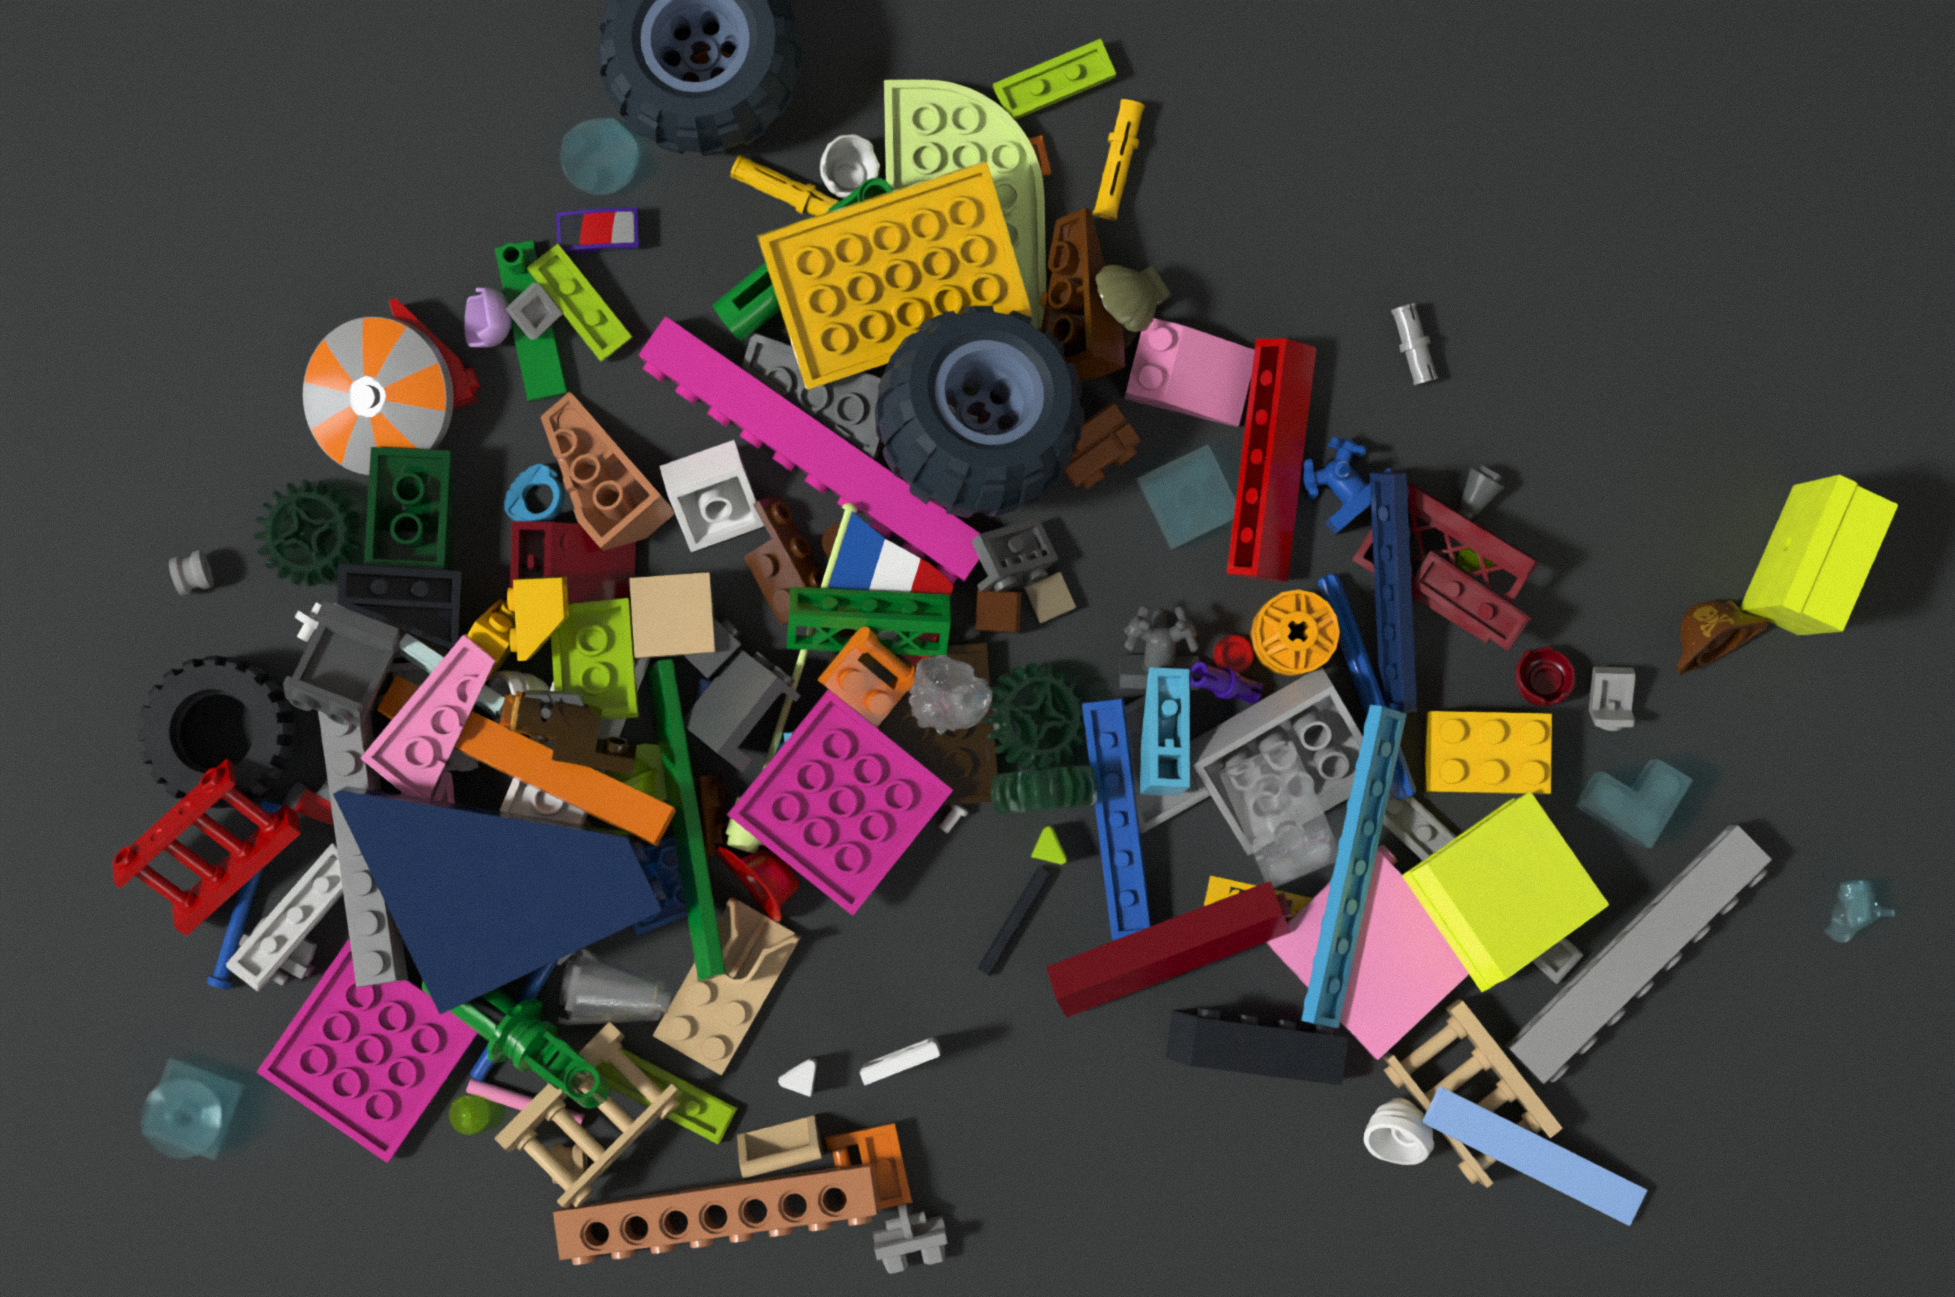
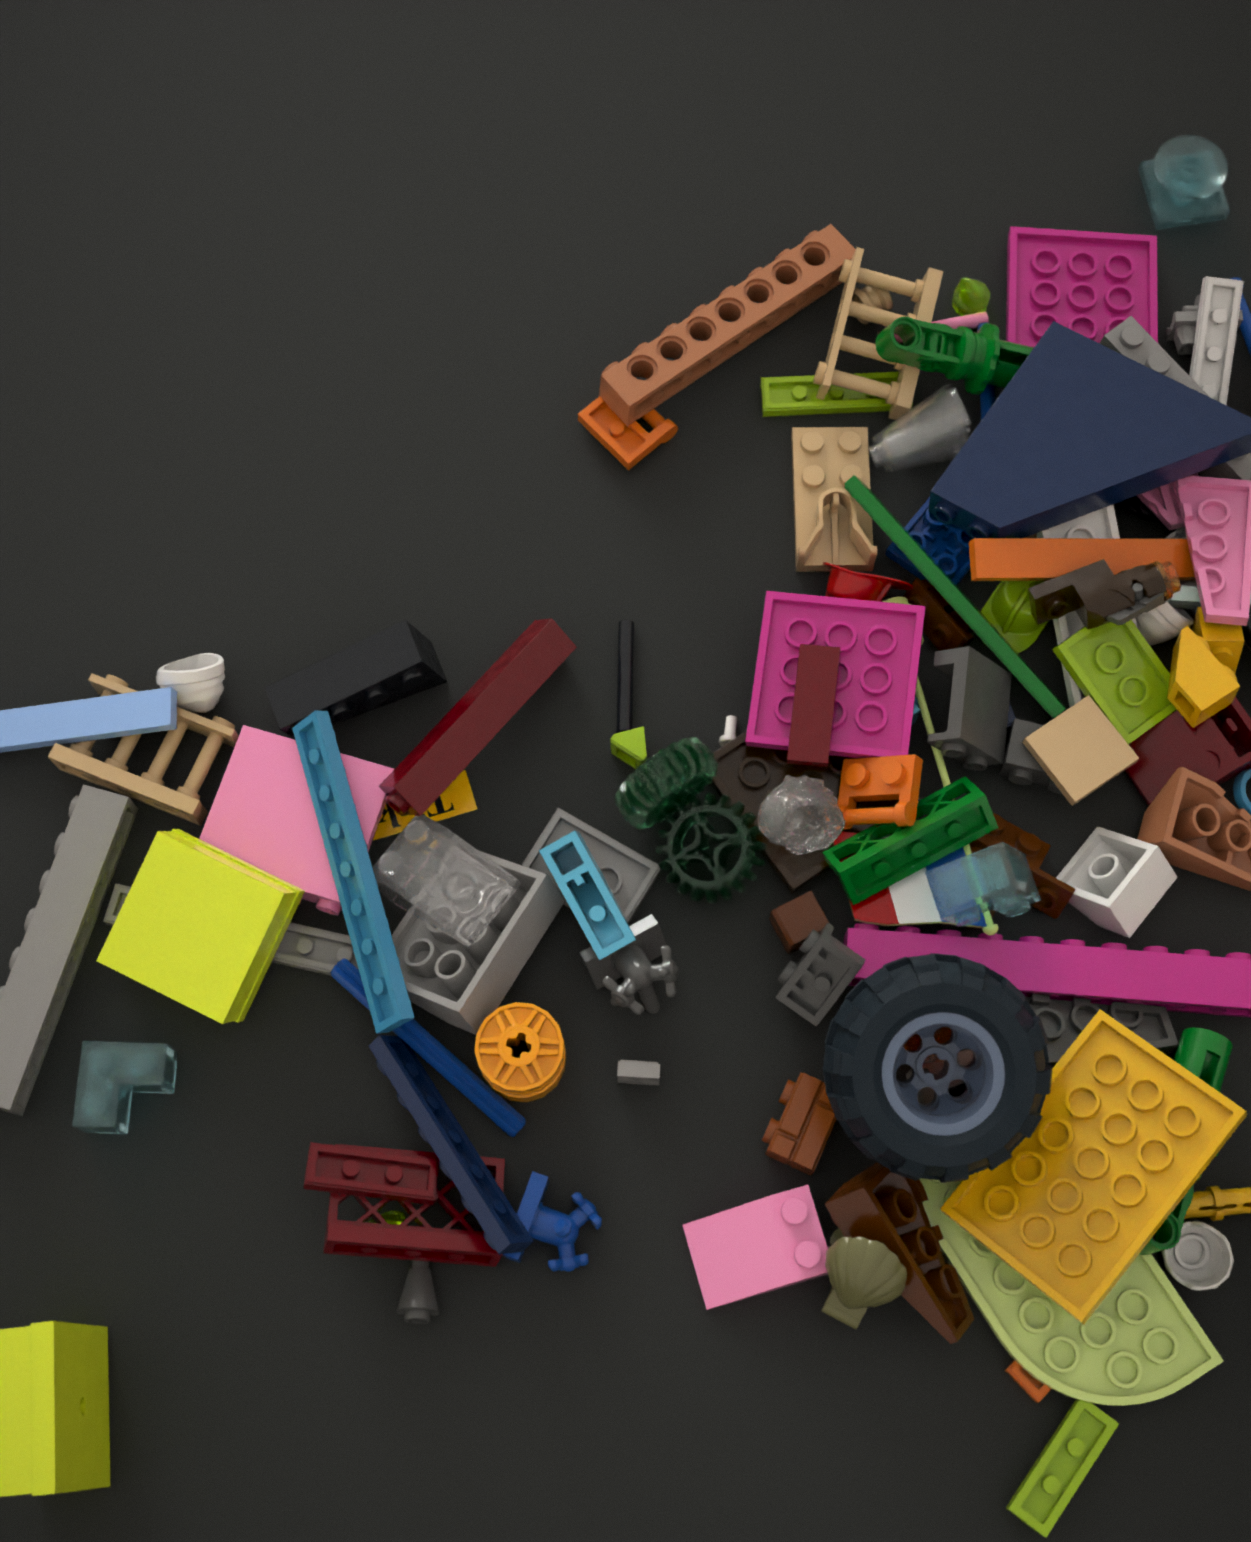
camera: 150 degrees right, 15 degrees down
(779, 1146) = (710, 396): tan tile -> none
(800, 1078) = (726, 457): white slope -> none
(829, 540) = (983, 881): none -> clear light blue brick
(878, 783) = (813, 705): none -> dark red tile
(900, 1060) = (653, 506): white tile -> none
(909, 1235) = (561, 390): light grey hips -> none
(1050, 597) = (760, 965): dark tan tile -> none
(1117, 817) = (588, 805): blue plate -> none
(1130, 116) = (970, 1475): yellow pin -> none
(1188, 497) = (689, 1128): clear light blue plate -> none
(1205, 564) = (638, 1072): none -> light grey tile
(1226, 683) = (558, 972): dark purple pin -> none
(1234, 653) = (567, 1008): red tile -> none
(1271, 460) = (634, 1206): red brick -> none
(1414, 344) = (559, 1405): light grey pin -> none
(1487, 752) = (281, 1048): yellow brick -> none
(1544, 676) = (264, 1149): dark red hair -> none
(1612, 697) = (189, 1166): light grey bracket -> none
(1713, 631) = (123, 1287): reddish brown hat -> none

